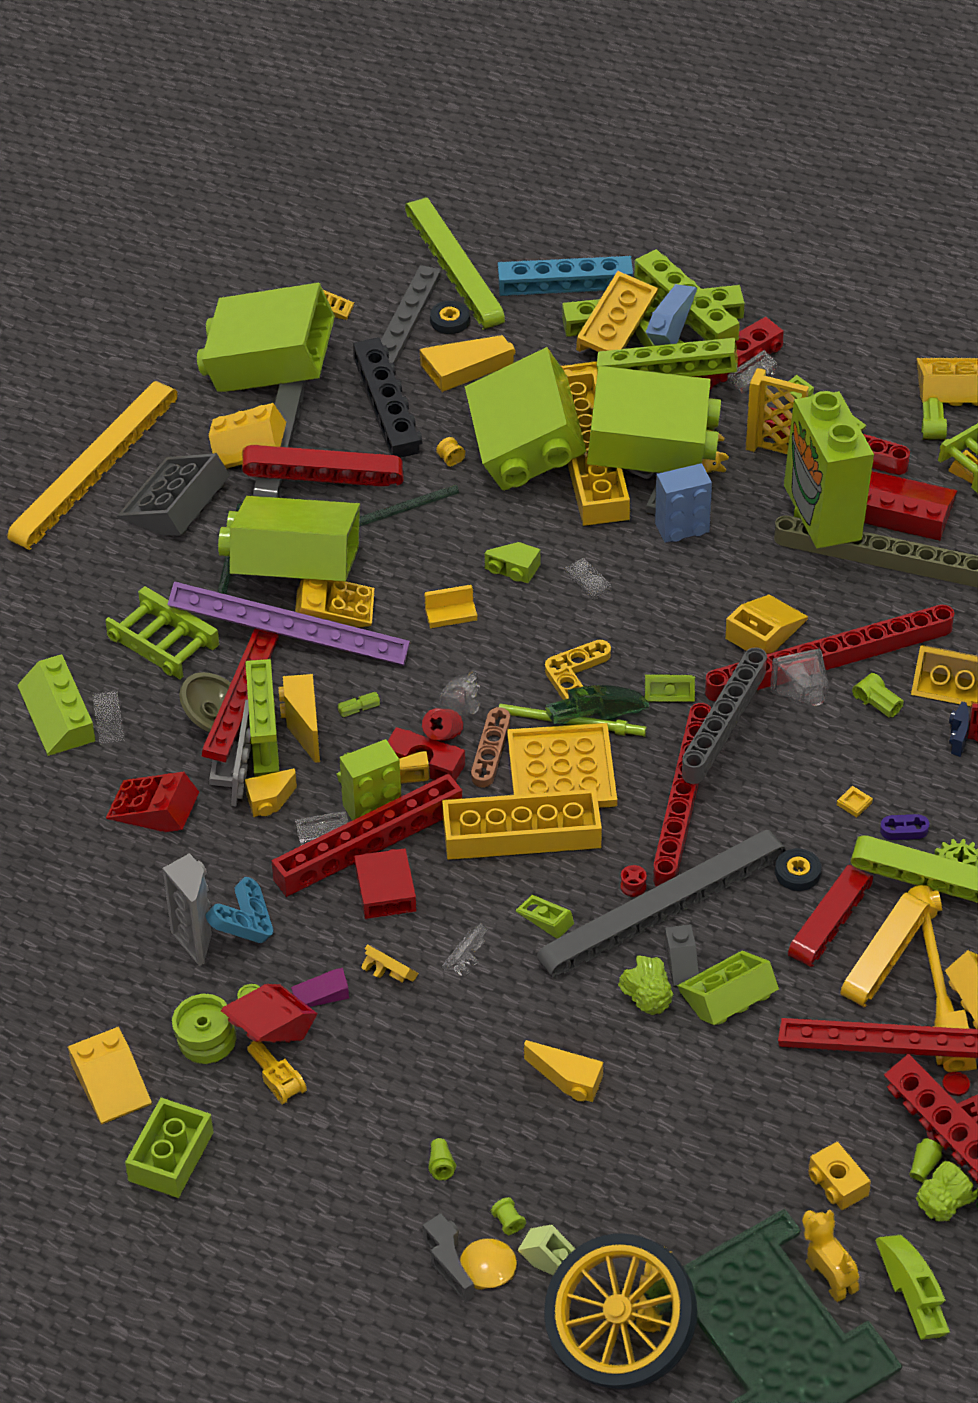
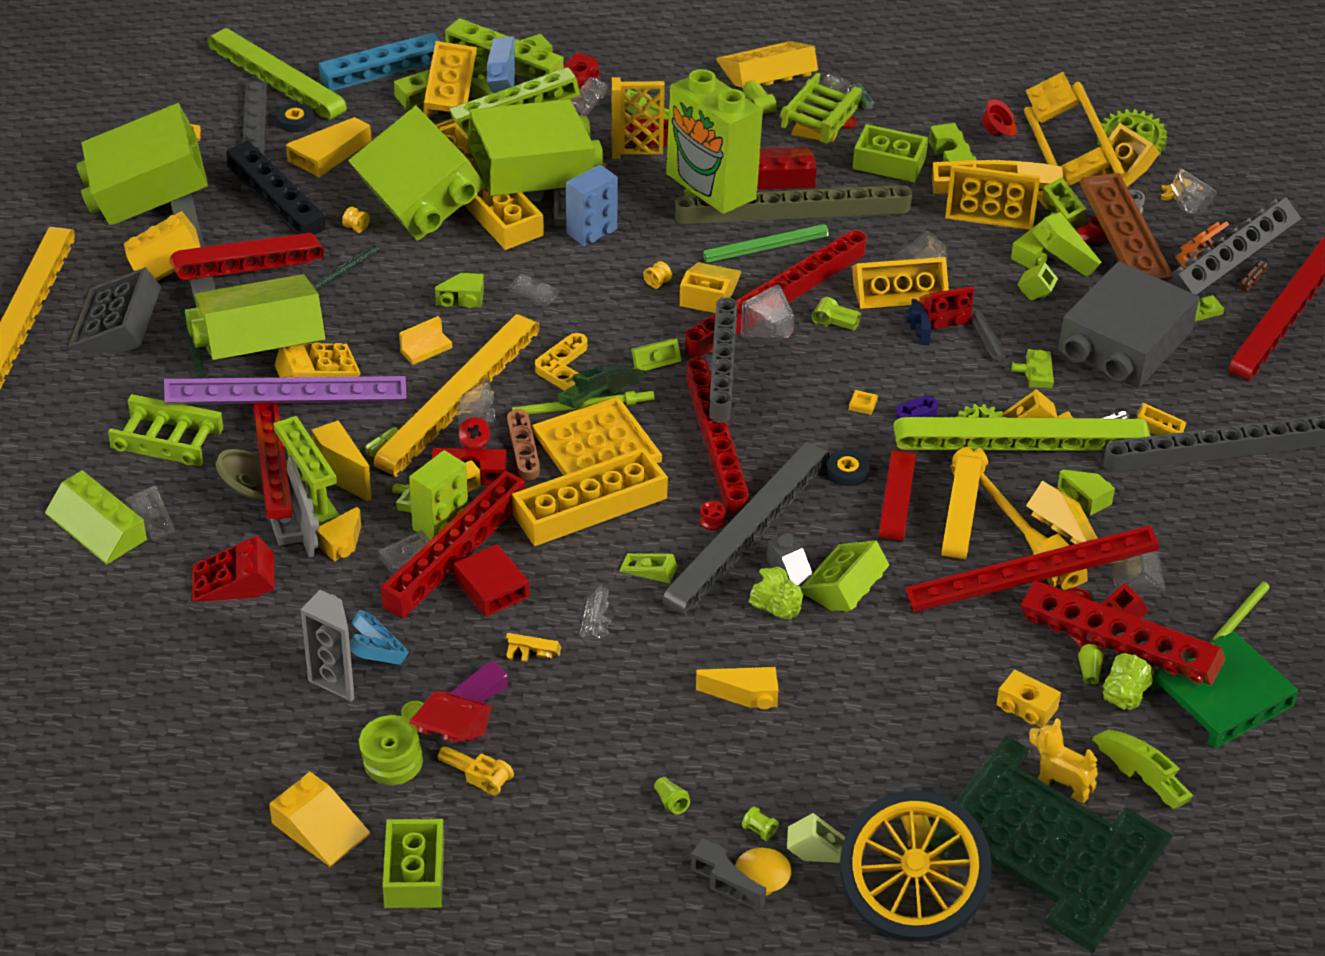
camera: 25 degrees left, 5 degrees down
(426, 686) = (444, 404): none -> yellow beam
(718, 597) = (657, 275): none -> yellow wheel
(861, 592) = (765, 243): none -> bright green axle

